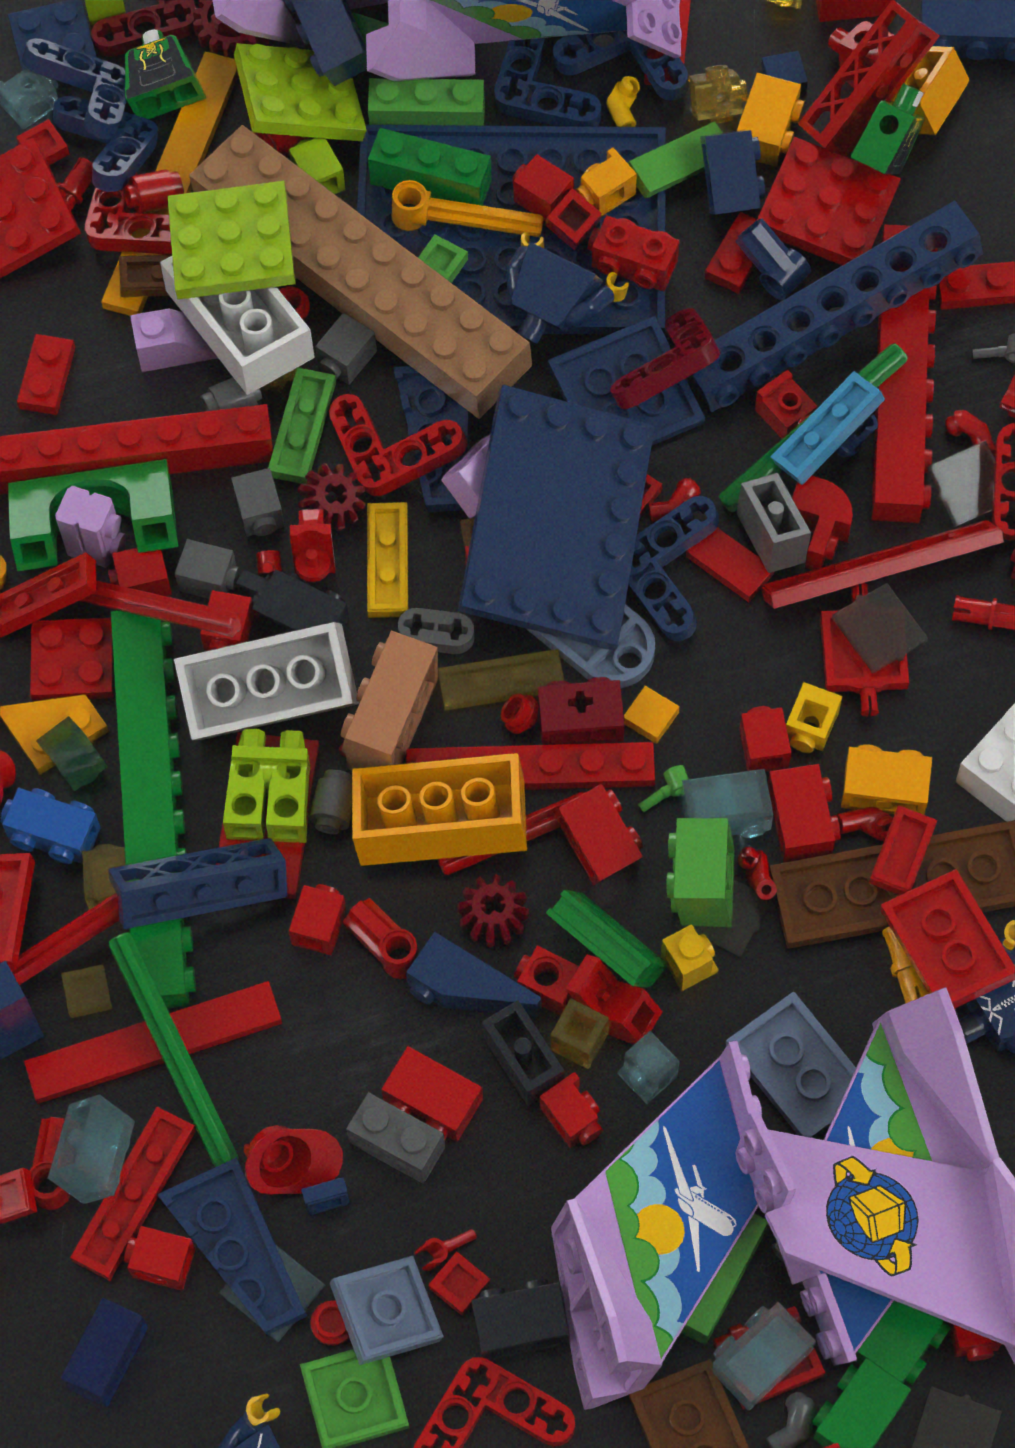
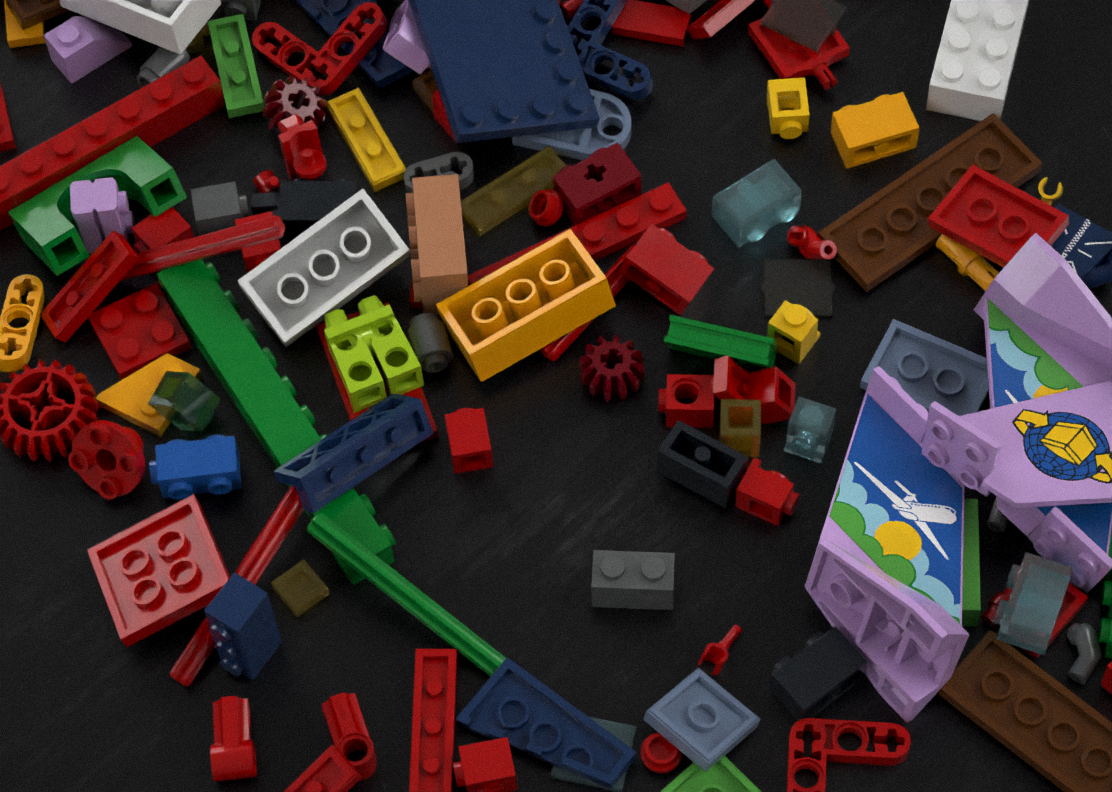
camera: 25 degrees left, 5 degrees down
(91, 1149) = (381, 705): clear light blue brick -> none
(95, 872) = (262, 487): clear yellow brick -> none
(135, 1050) = (373, 609): red tile -> none
(258, 502) = (232, 139): dark grey brick -> none
(291, 1159) = (555, 637): red piece -> none
(325, 1196) = (599, 653): dark blue tile -> none
(381, 937) = (531, 429): red piece -> none
(432, 1093) = (644, 527): red brick -> none
(459, 1283) = (750, 670): red plate -> none
(464, 982) = (619, 433): dark blue slope -> none
(651, 714) = (654, 162): light orange tile -> none
(673, 778) = (702, 202): bright green hand -> none
(702, 872) = (770, 257): bright green brick -> none
(765, 739) = (758, 139): red brick -> none
(802, 812) = (825, 183): red brick -> none
(867, 819) = (877, 166): red arm -> none
(903, 851) = (919, 173): red tile -> none

